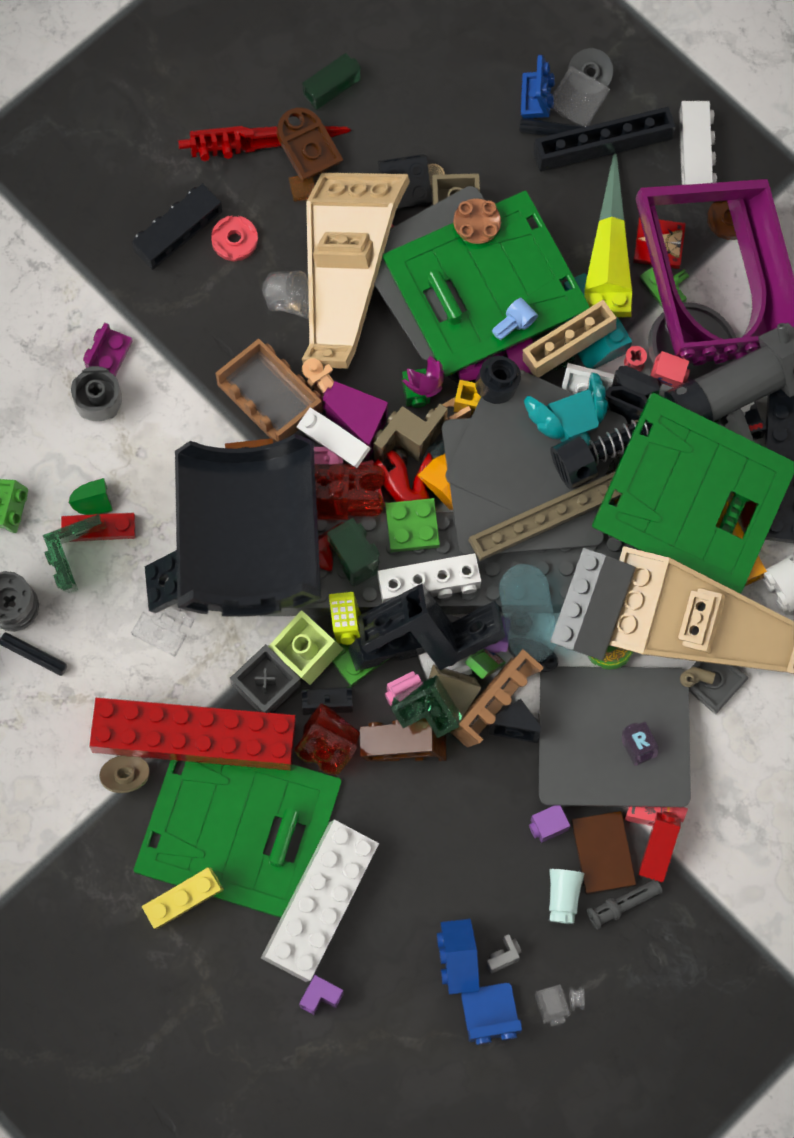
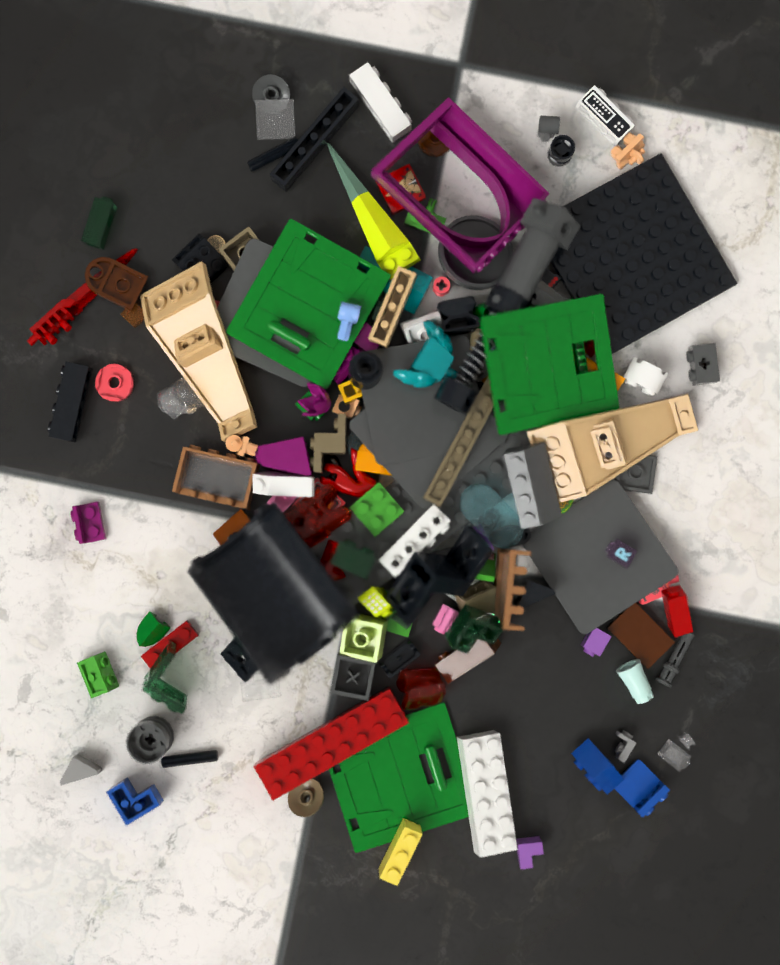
camera: 35 degrees left, 15 degrees up
(84, 391) = (93, 554): dark grey brick -> none
(477, 221) = (273, 264): nougat dish -> none
(536, 91) = (244, 135): blue bracket -> none
(670, 369) = (474, 283): coral brick -> none
(695, 675) = (624, 479): dark tan arm -> none

